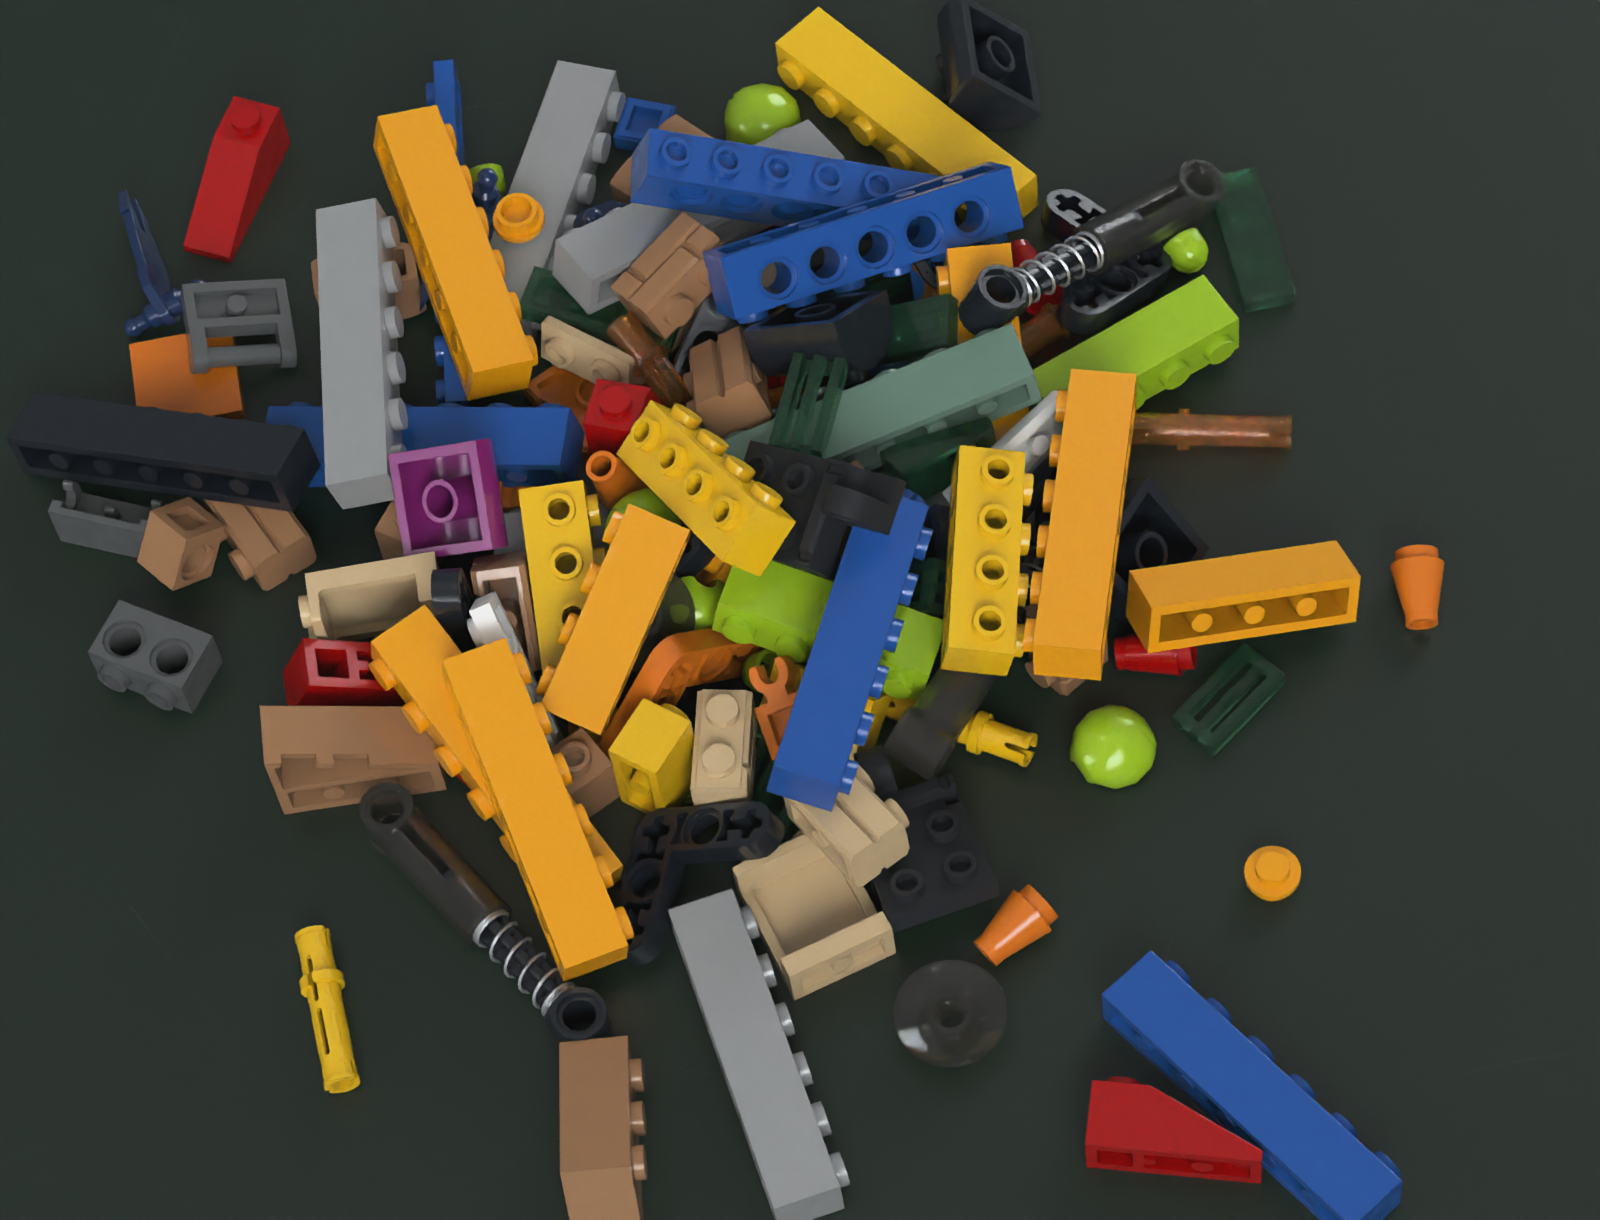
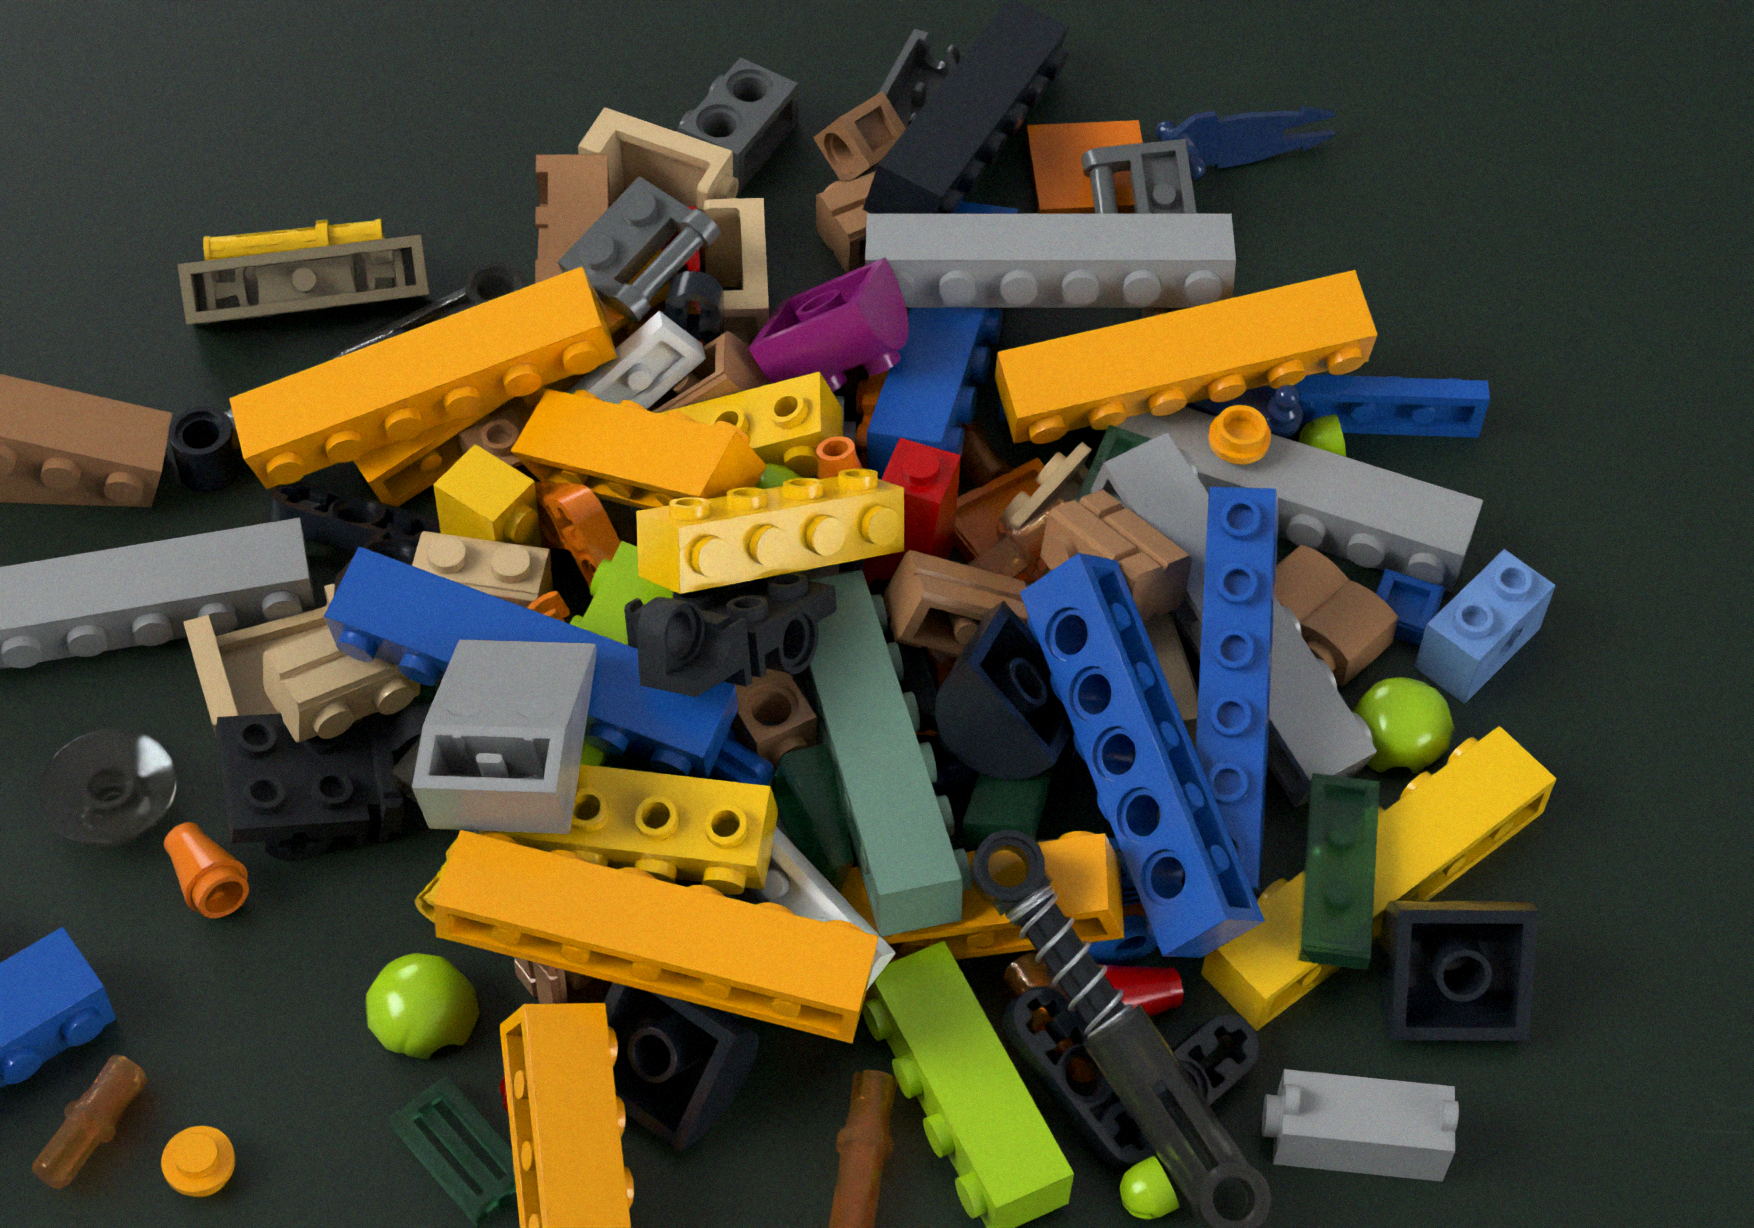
camera: 85 degrees right, 5 degrees down
(236, 177) = (1352, 214): red slope -> none
(246, 682) = (667, 159): none -> tan panel
(385, 973) = (303, 280): none -> dark tan brick
(386, 650) = (629, 237): none -> dark grey plate
(670, 64) = (1484, 626): none -> medium blue brick
(783, 421) = (886, 648): clear green tile -> none
(924, 131) = (1339, 871): none -> clear green tile
(945, 613) = (506, 737): none -> light grey slope
(1117, 122) = (1362, 1125): none -> light grey brick
(1255, 955) = (89, 1121): none -> clear orange axle

